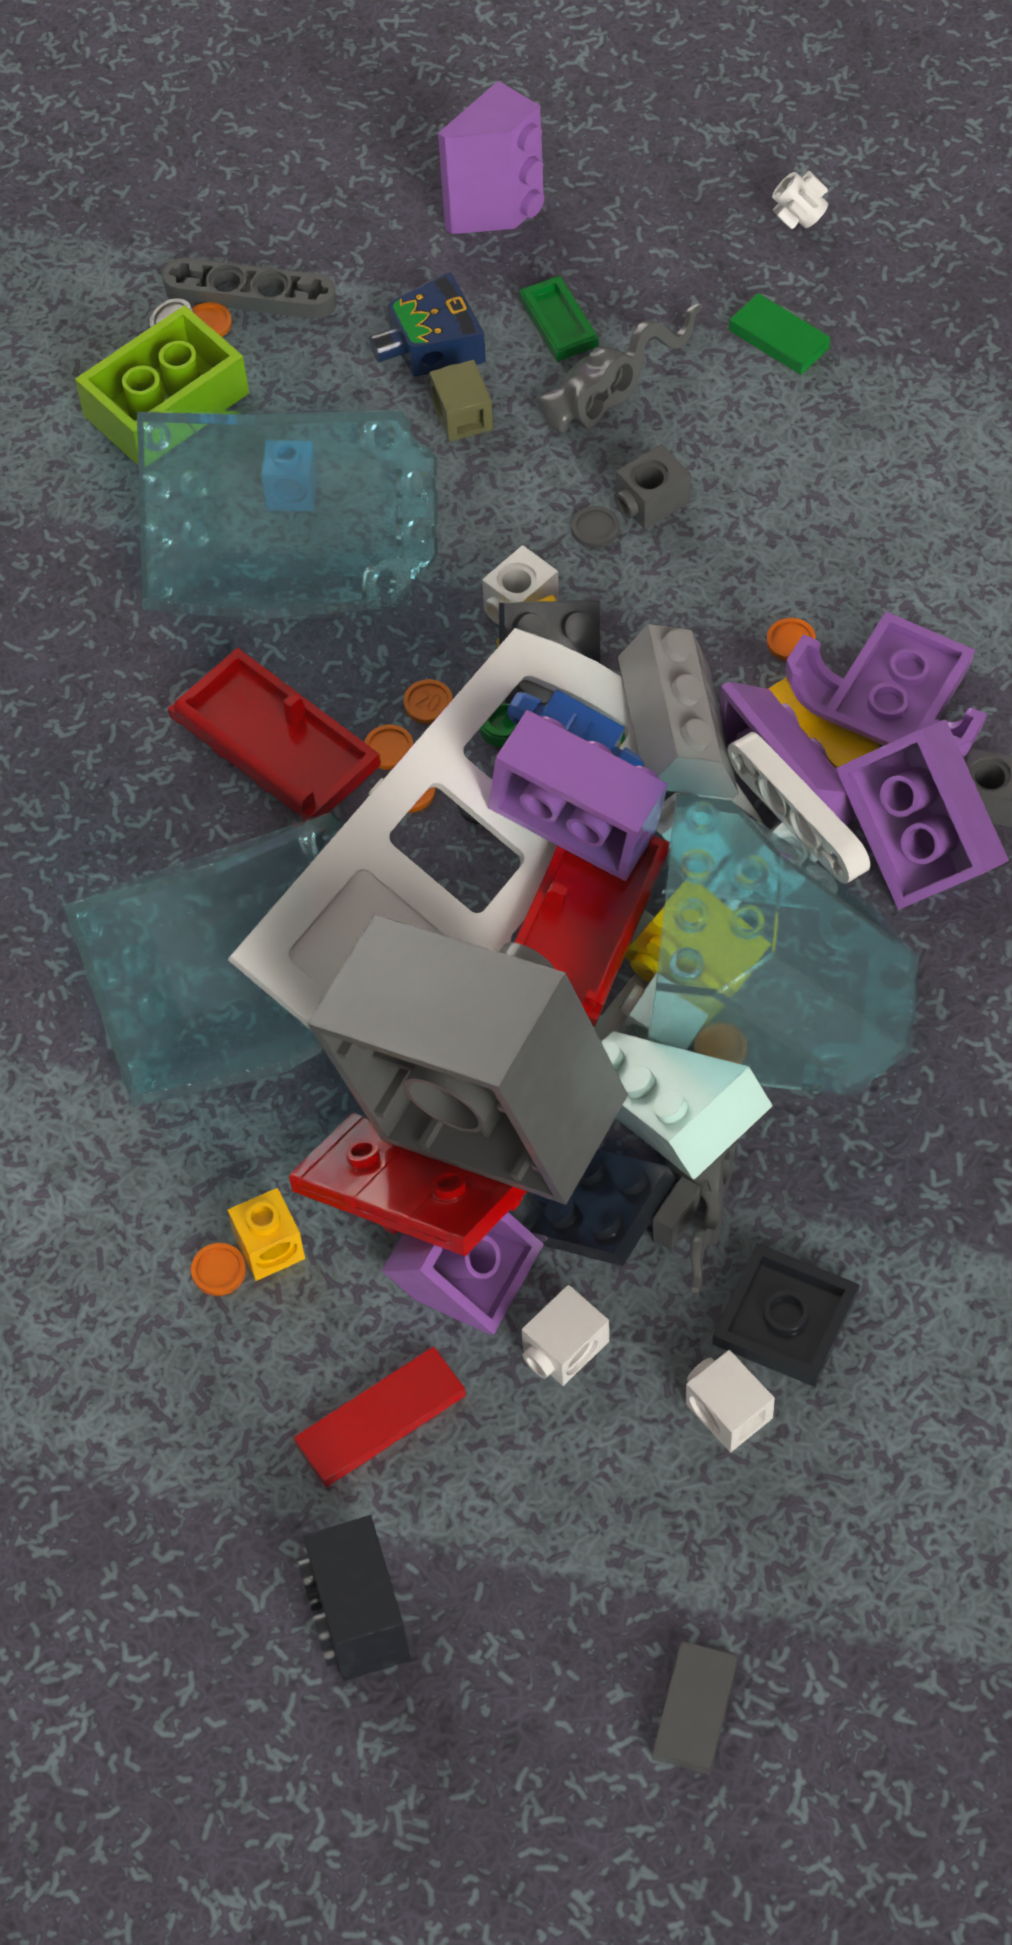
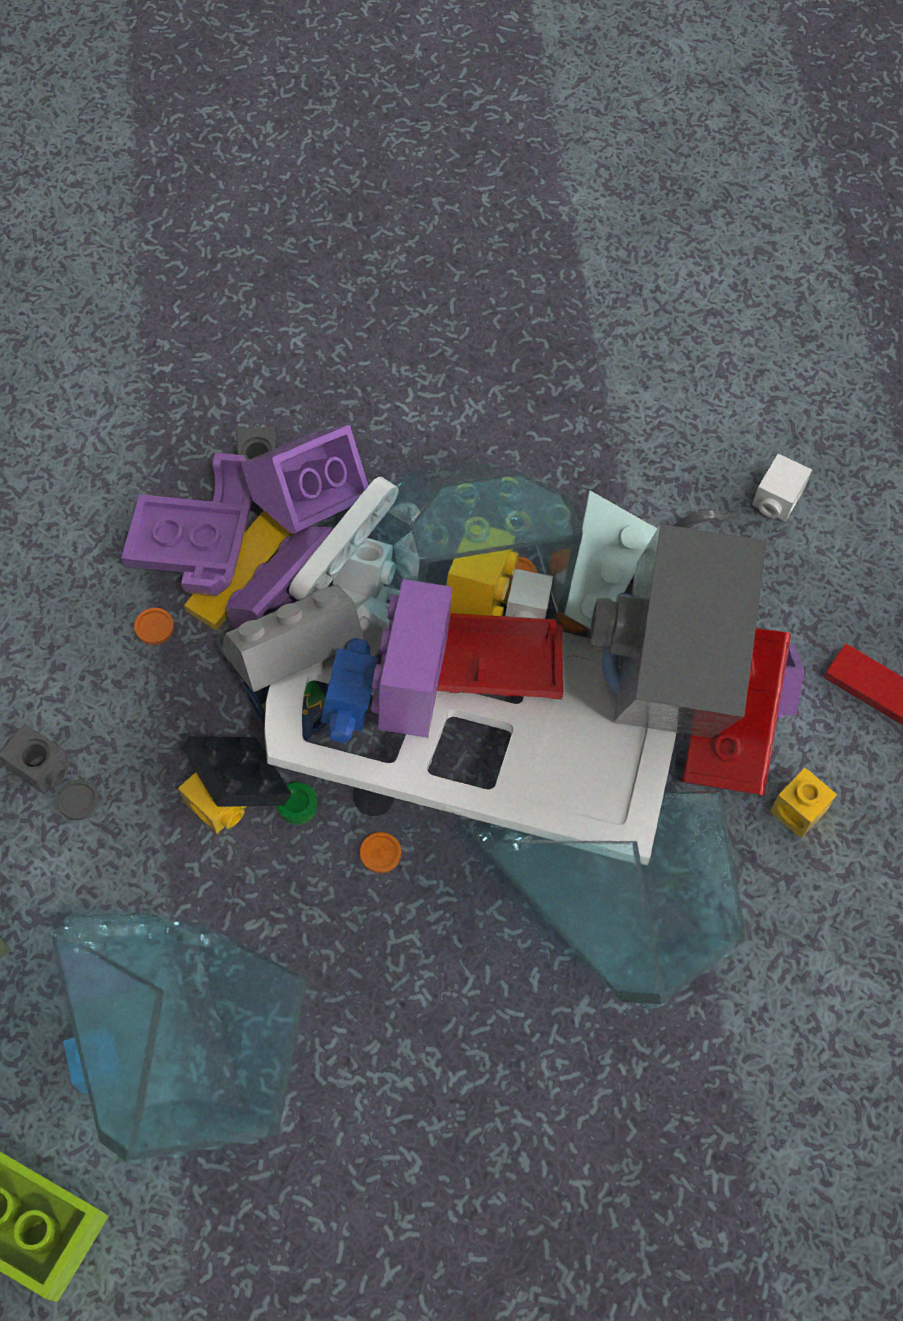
camera: 115 degrees left, 5 degrees up
(218, 1269) = (831, 837): orange piece -> none
(275, 736) = (370, 973): red container -> none
(391, 743) = (345, 883): orange piece -> none
(426, 700) = (292, 869): orange piece -> none
(518, 579) = (161, 812): white brick -> none
(564, 1336) = (786, 592): white brick -> none
(785, 1314) = (706, 476): black plate -> none

